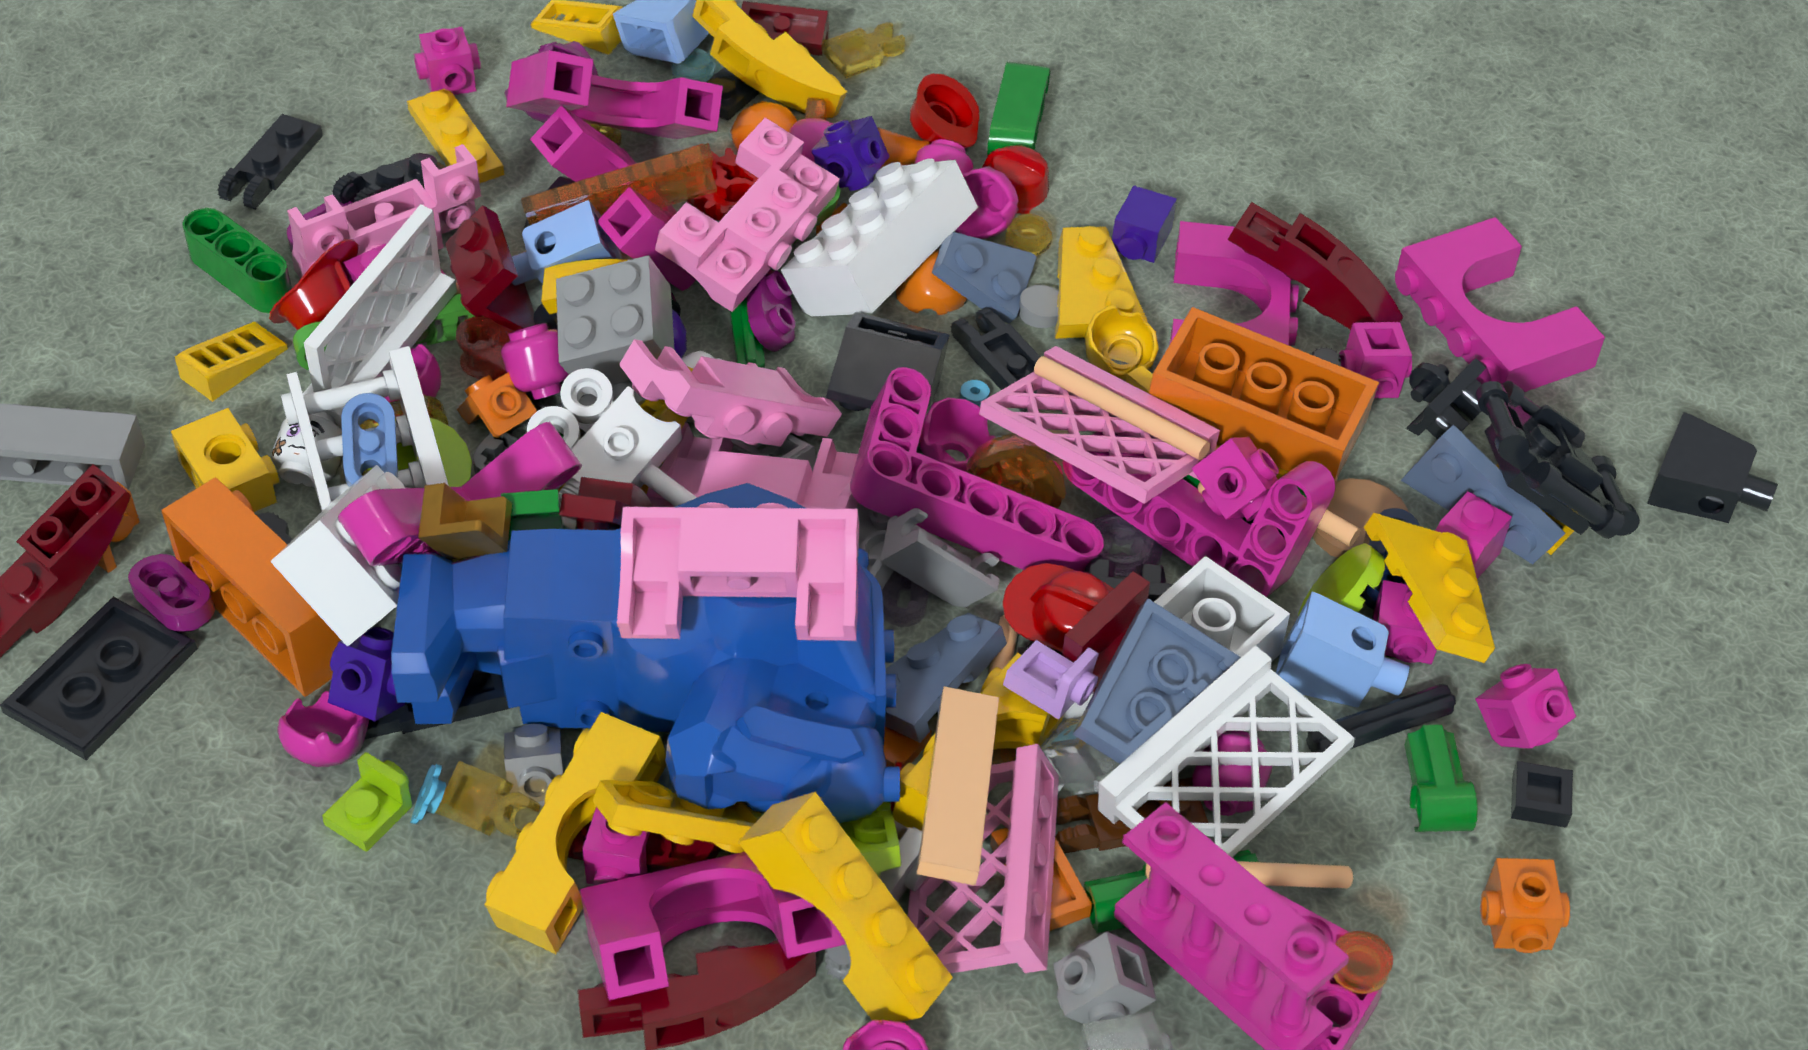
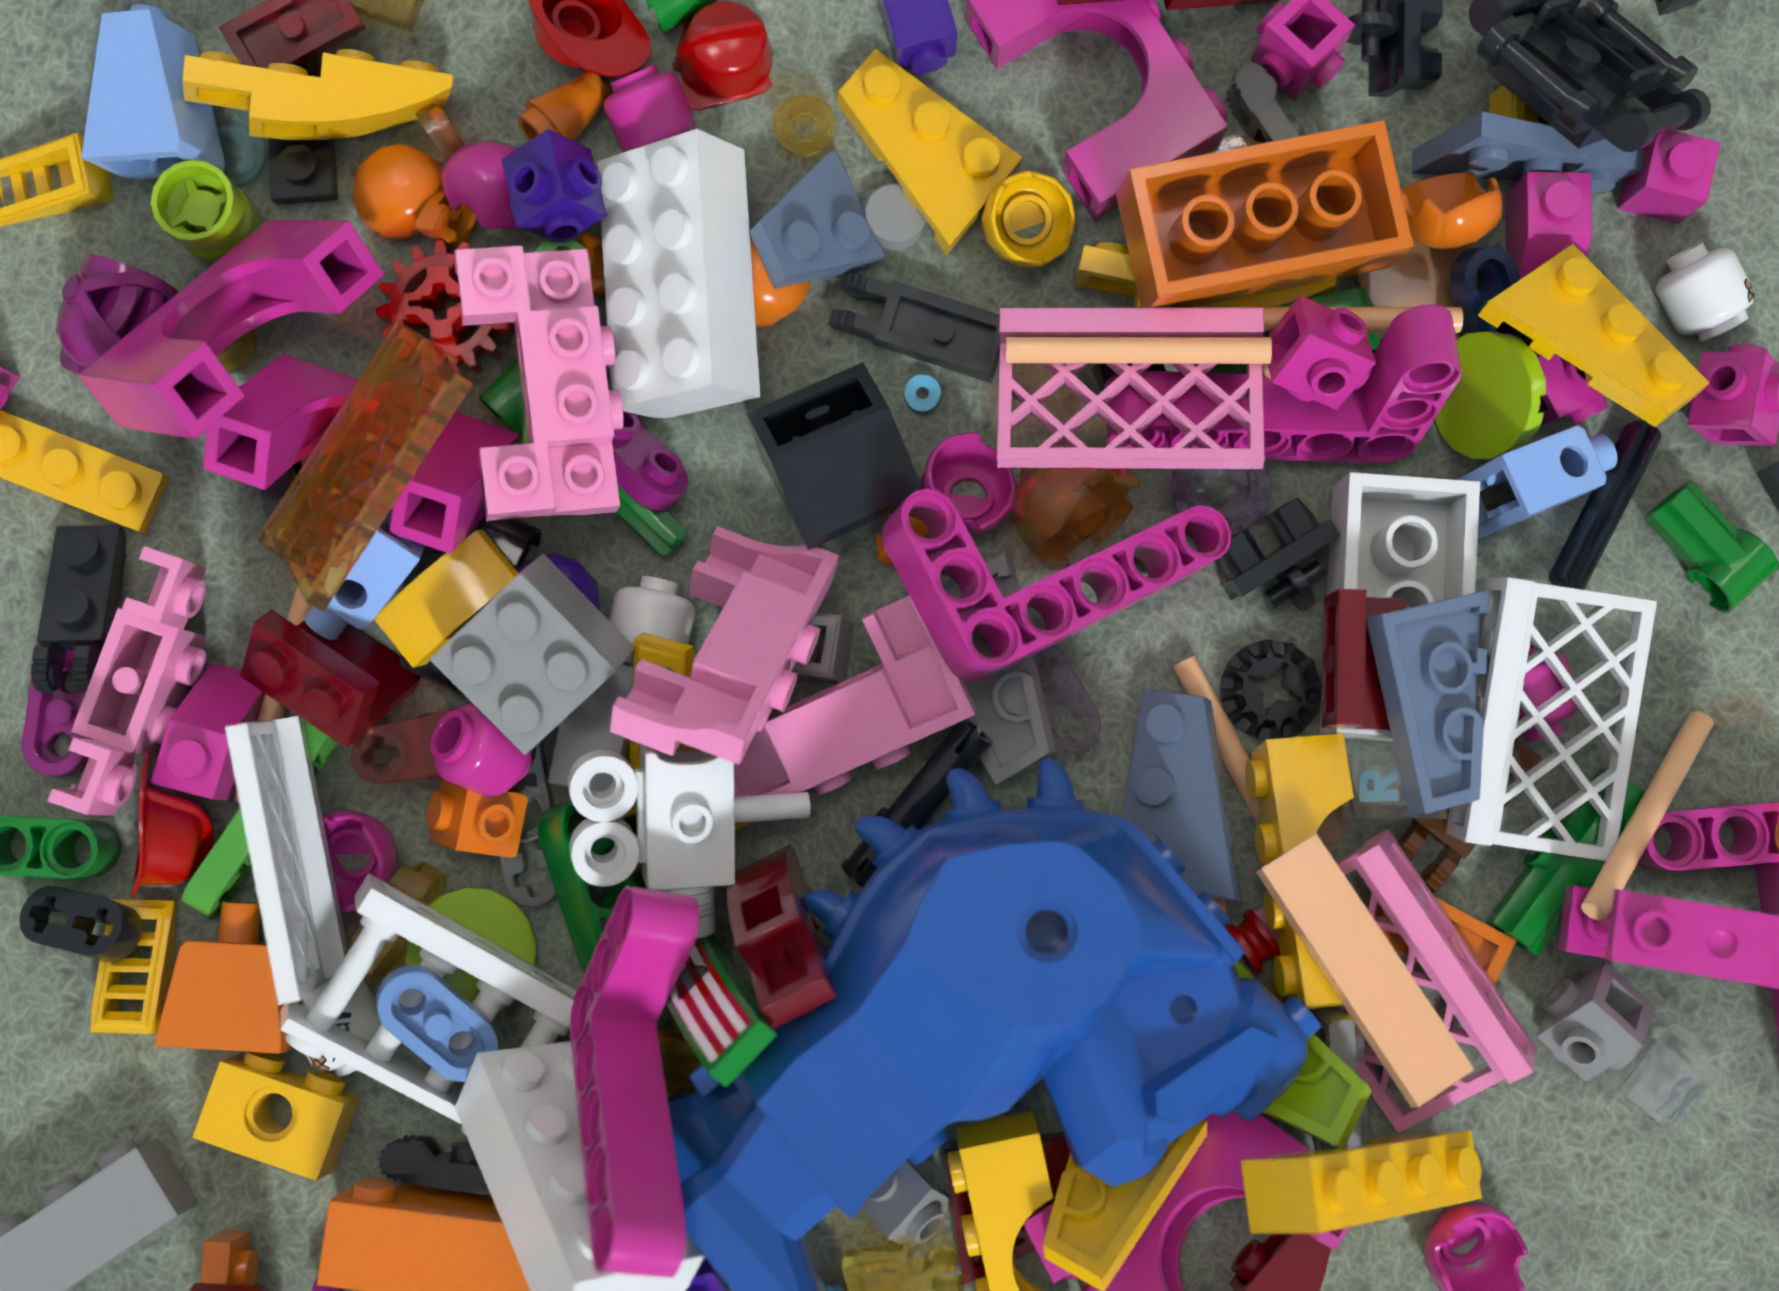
camera: 35 degrees left, 35 degrees up
(228, 313) = (83, 913): none -> black beam
(254, 390) = (224, 990): none -> orange torso
(461, 526) = (706, 1139): pearl gold panel -> none
(650, 58) = (202, 209): none -> lime wheel
(739, 555) = (1052, 995): bright pink bracket -> none
(936, 564) = (1085, 670): light grey hinge -> none
(995, 202) = (741, 117): dark pink hair -> none
(1050, 601) = (1246, 628): red piece -> none
(1052, 679) = (1345, 765): lavender bracket -> none
(1399, 485) = (1451, 210): none -> orange hair
(1554, 640) = (1705, 291): none -> white head
(1575, 566) = (1673, 177): none -> dark pink brick

